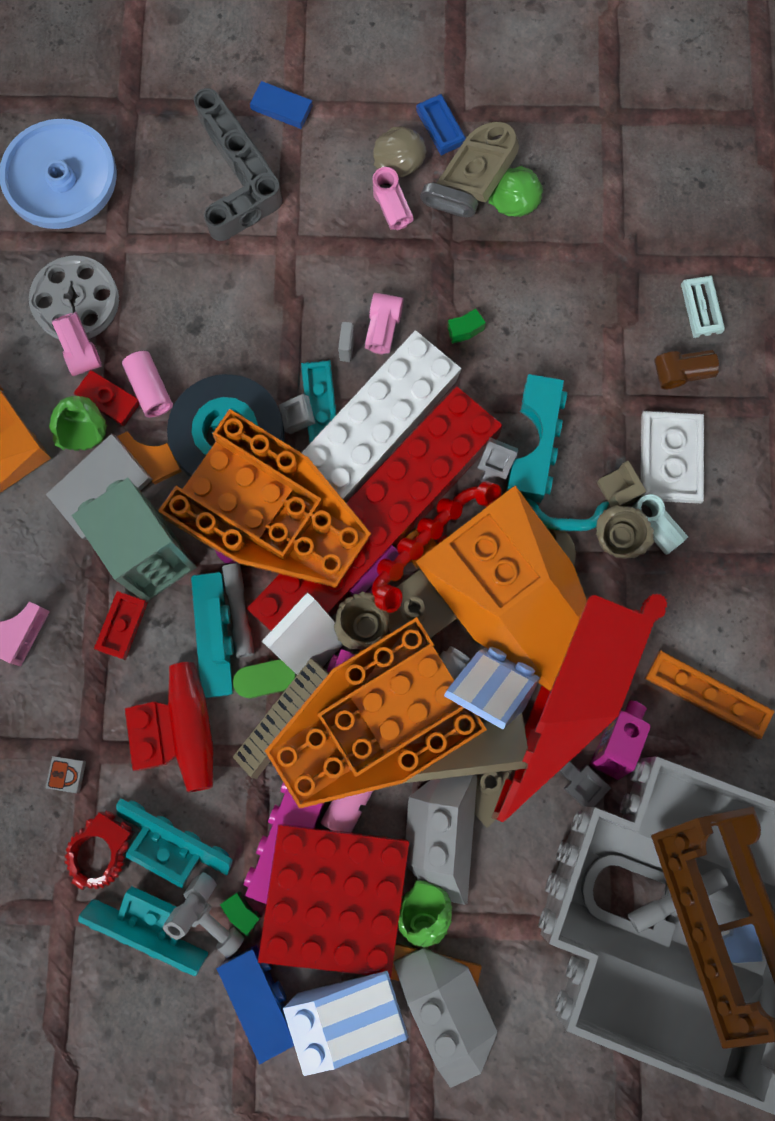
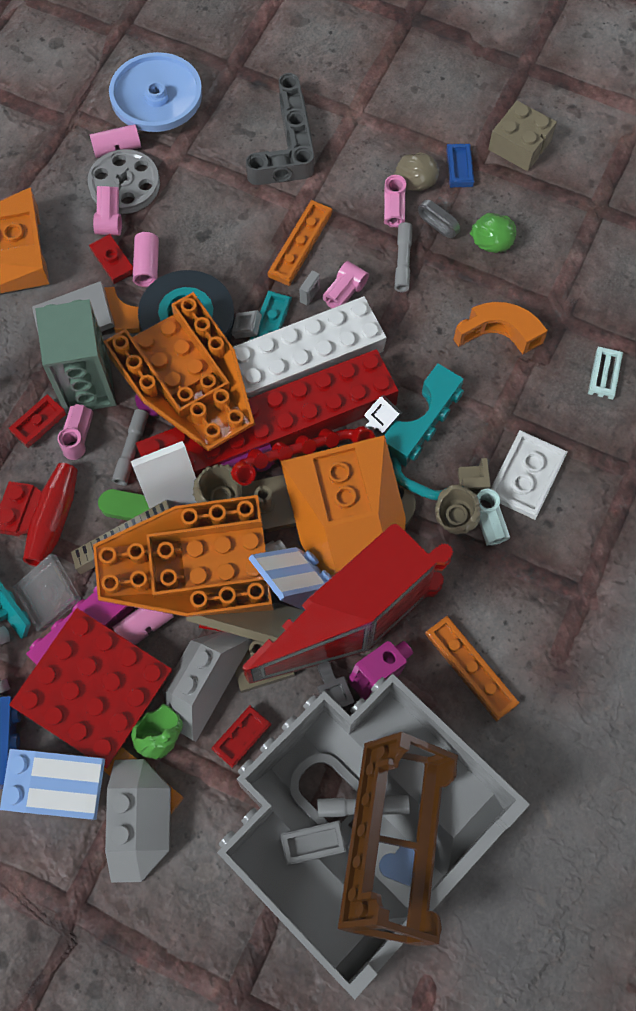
camera: 20 degrees right, 10 degrees down
(40, 252) = (115, 139): none -> bright pink pin
(77, 424) = (79, 265): bright green hair -> none
(169, 617) = (76, 431): none -> bright pink piece
(212, 636) = (102, 456): teal bracket -> none
(231, 816) = (46, 593): none -> clear tile
(240, 913) = (16, 669): green piece -> none
(281, 105) = (345, 107): blue tile -> none
(308, 290) = (300, 243): none -> orange tile
(435, 275) = (404, 242): none -> light grey piece
(466, 326) = (408, 314): green piece -> none
(482, 161) = (478, 200): dark tan tile -> none
(495, 61) = (522, 135): none -> dark tan piece
(511, 876) = (241, 736): none -> red plate
(574, 289) = (502, 318): none -> orange arch
(645, 961) = (313, 843): none -> light grey tile
(678, 369) = (560, 410): reddish brown piece -> none

